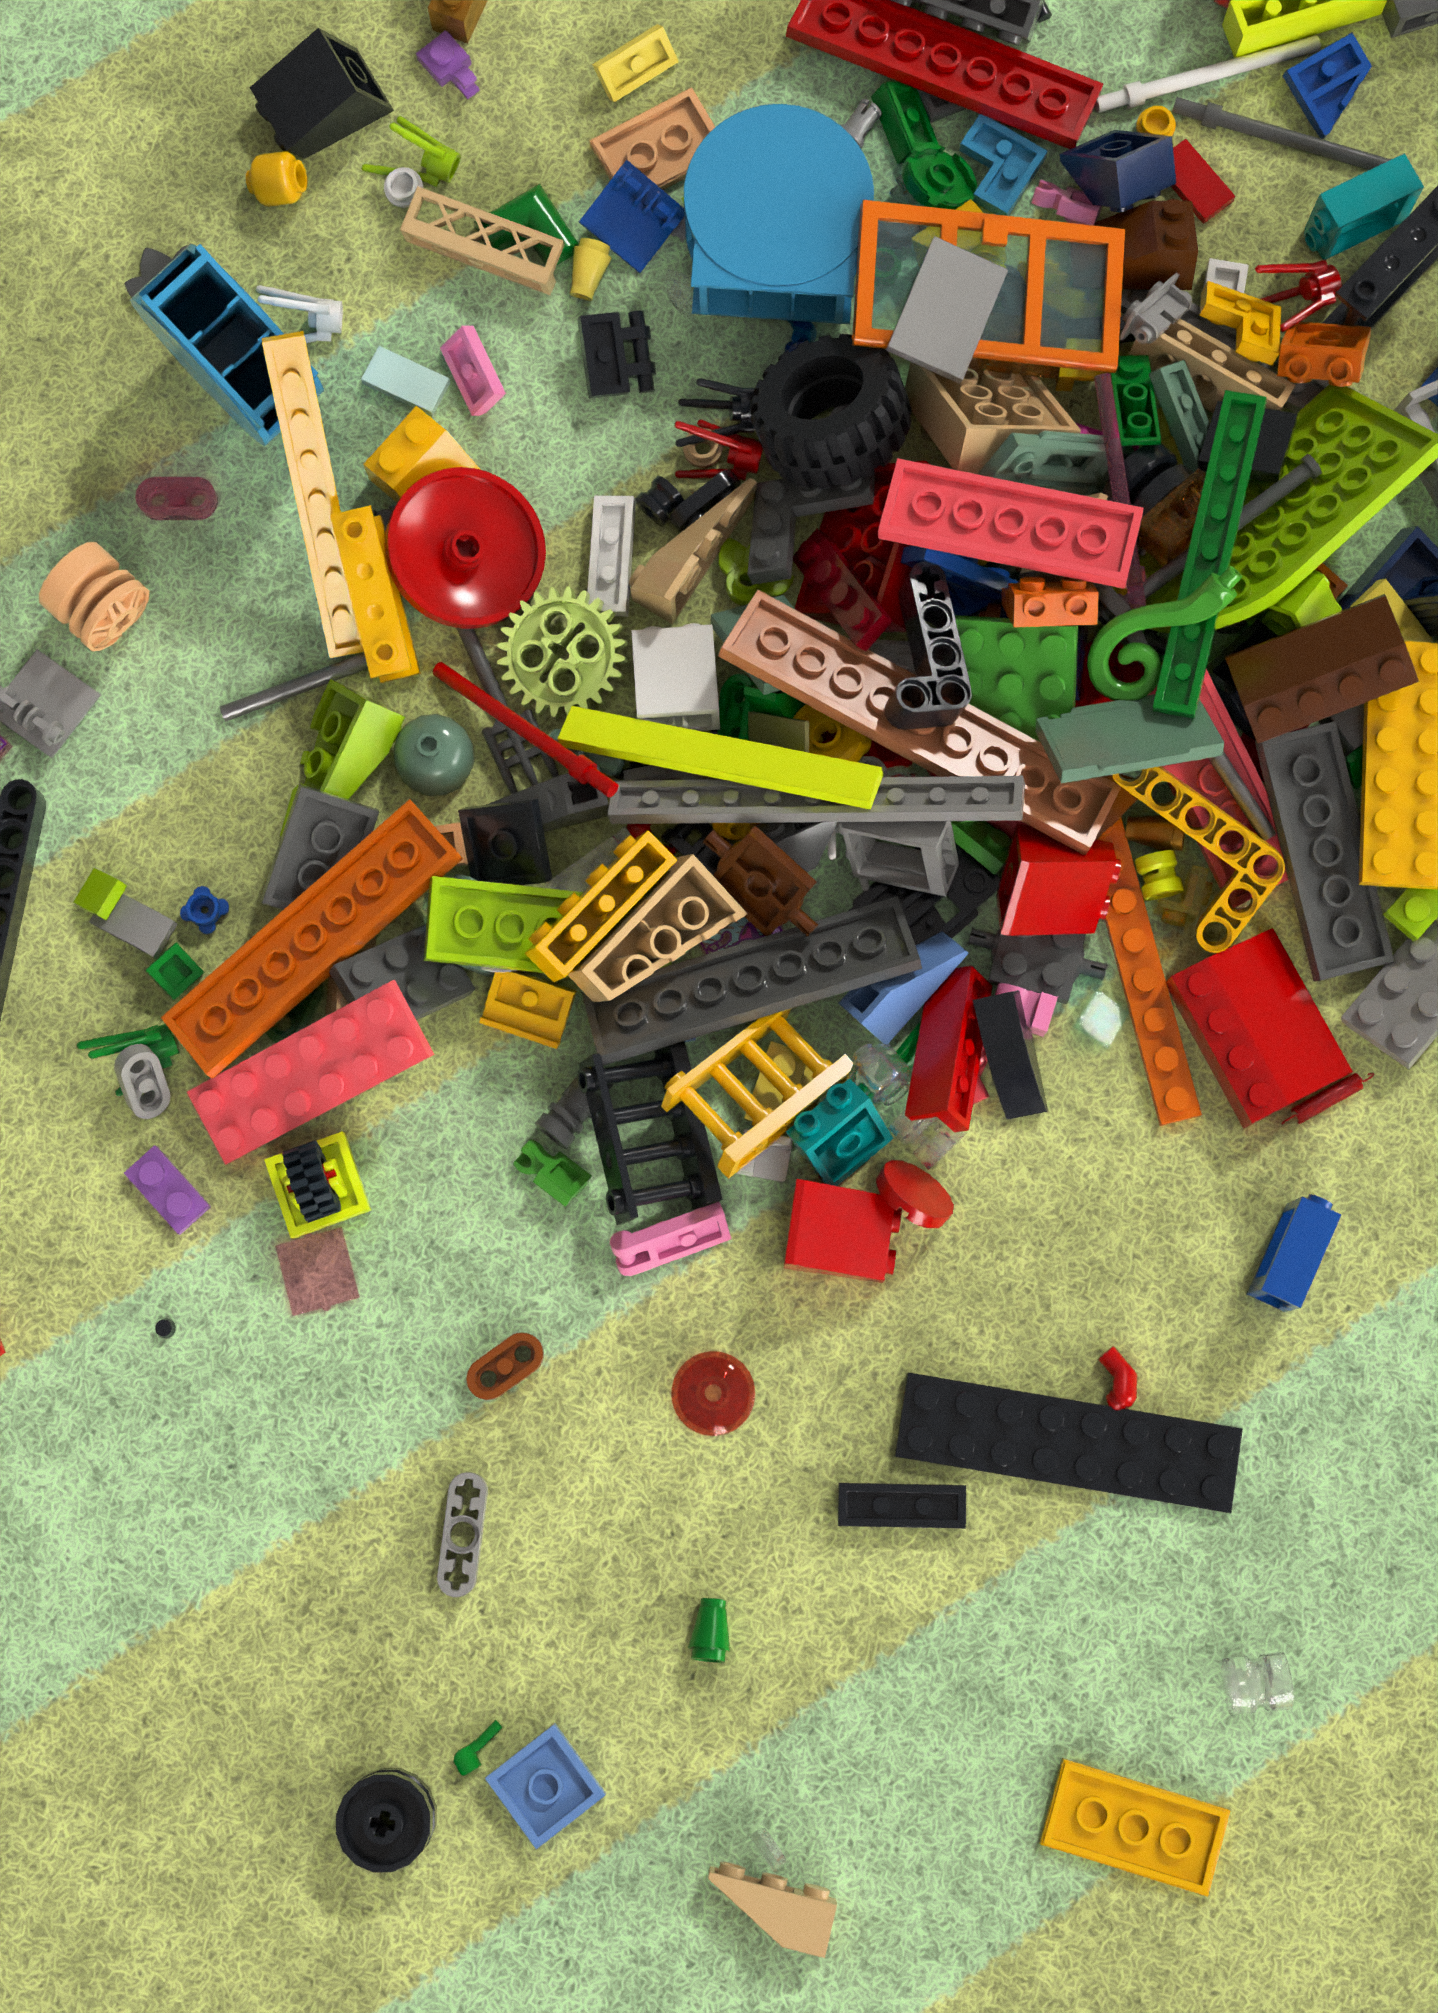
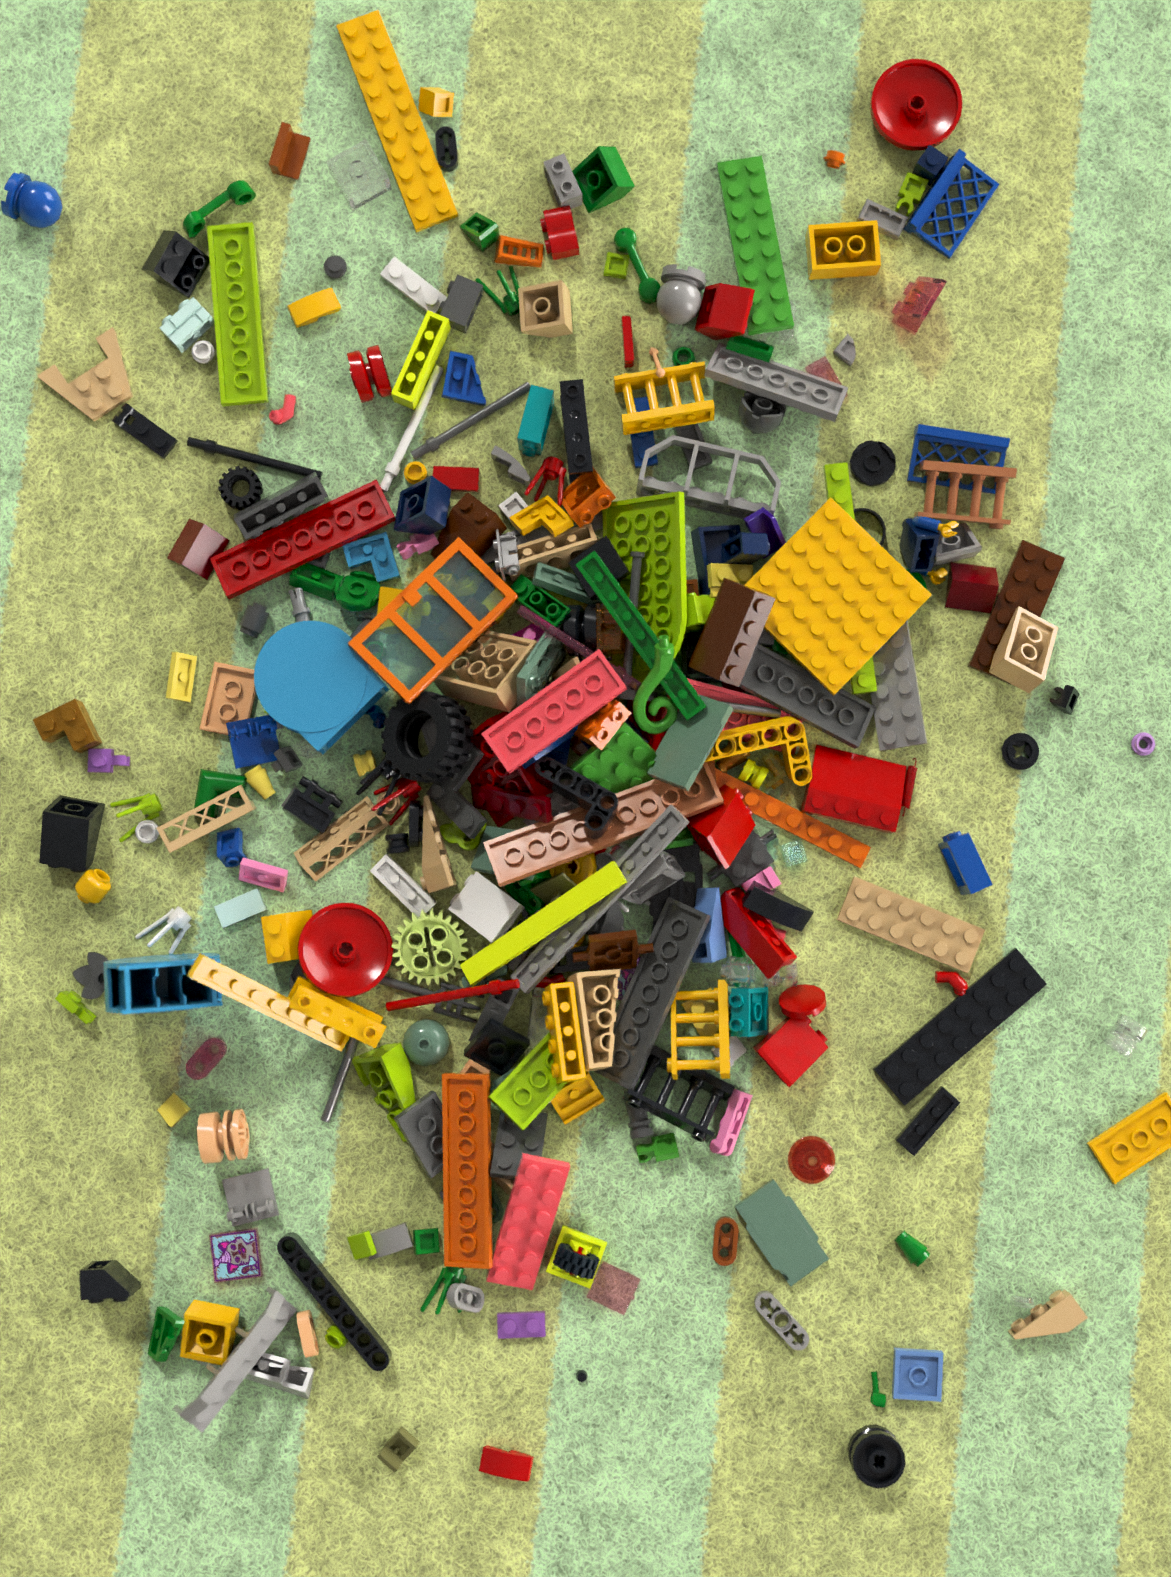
camera: 55 degrees left, 5 degrees up
(75, 516) = (173, 1110): none -> light yellow slope
(107, 277) = (71, 1002): none -> lime plate
(203, 898) = (406, 1210): blue plate -> none
(472, 301) = (230, 847): none -> blue bracket
(581, 1433) = (781, 1232): none -> sand green piece
(602, 414) = (338, 835): none -> tan fence
(644, 275) = (286, 760): none -> dark grey tile
(728, 371) = (364, 763): none -> light yellow wheel
(788, 86) = (254, 620): none -> dark grey brick
(947, 310) = (430, 650): light grey tile -> none
(1146, 1259) = (910, 924): none -> tan plate
(1275, 239) = (515, 470): none -> light grey slope

